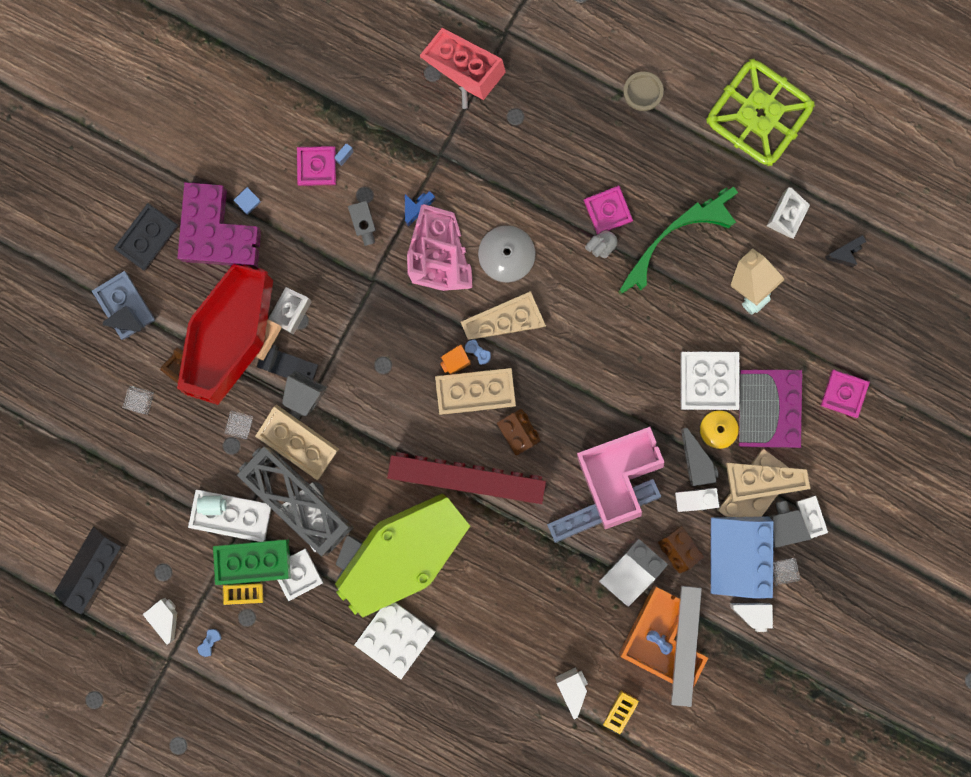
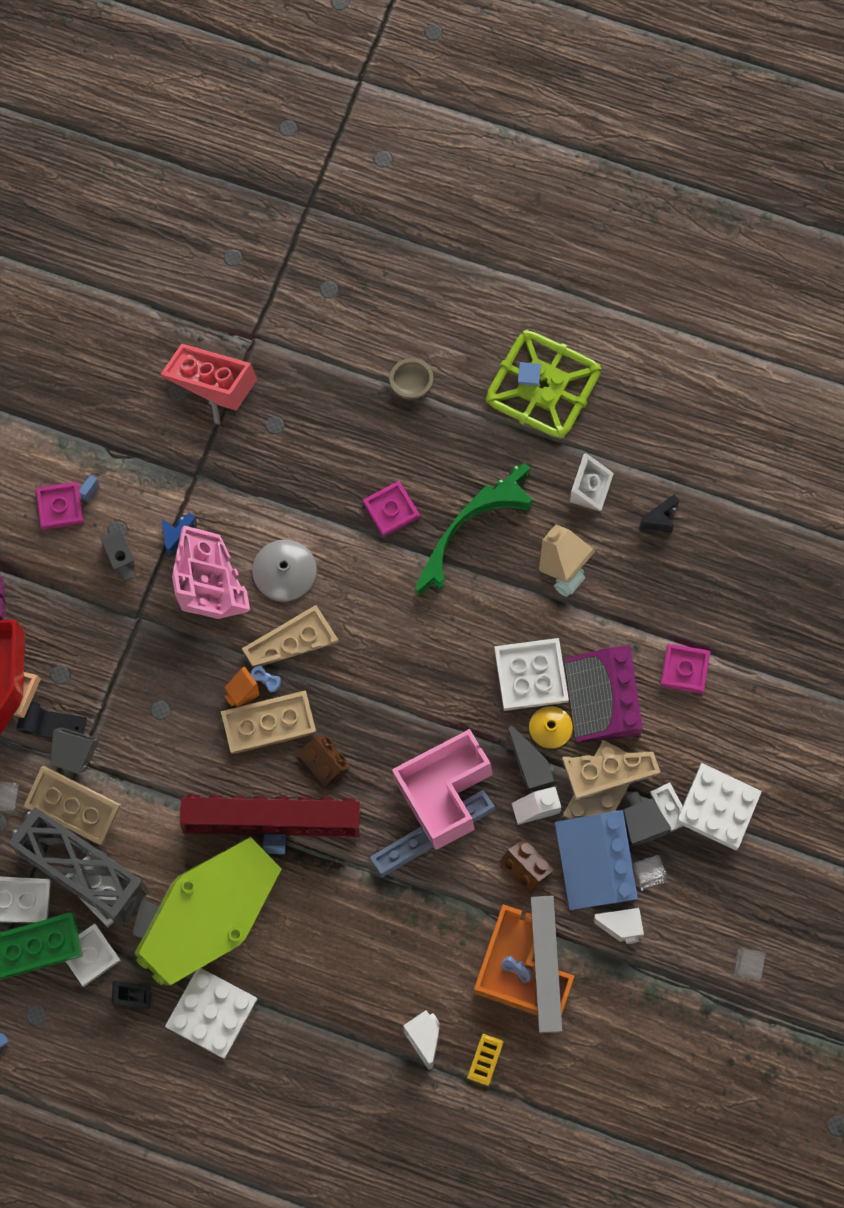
camera: 10 degrees left, 15 degrees down
(259, 589) = (19, 996): yellow slope -> none
(290, 310) = (49, 662): white slope -> none
(328, 615) = (130, 995): none -> black slope
(466, 501) = (274, 843): none -> medium blue tile
(602, 244) = (389, 543): light grey piece -> none
(633, 572) = (476, 896): slope -> none
(750, 102) = (529, 374): none -> medium blue tile
(854, 523) = (718, 806): none -> white plate
(857, 663) = (749, 964): none -> clear piece

